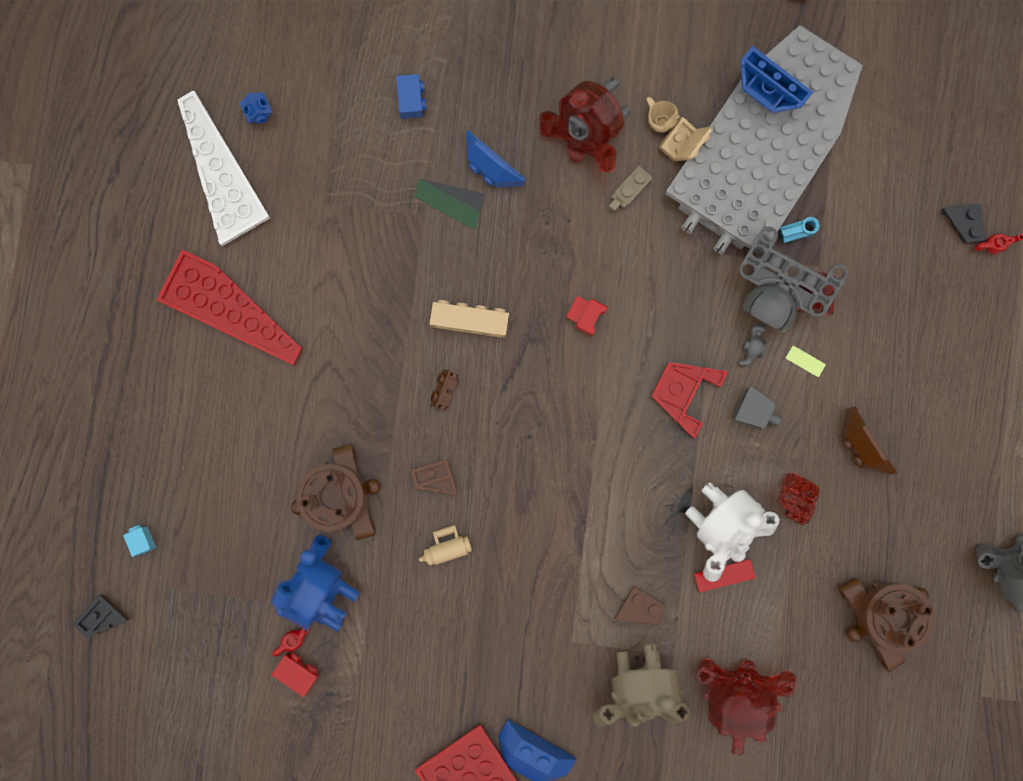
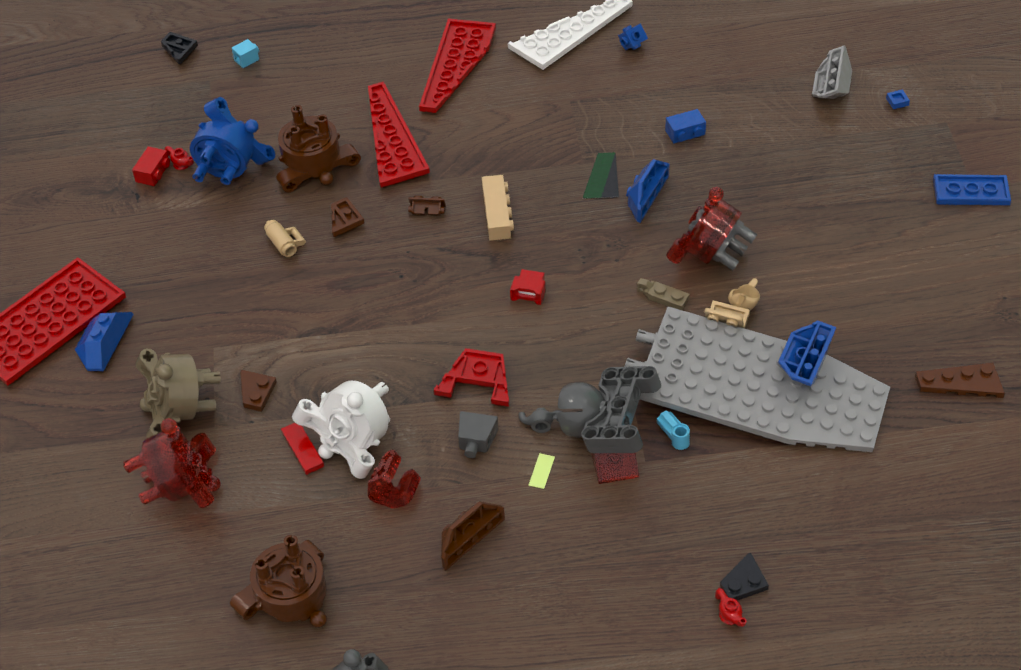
camera: 80 degrees right, 35 degrees down
(353, 403) = (395, 147): none -> red wing

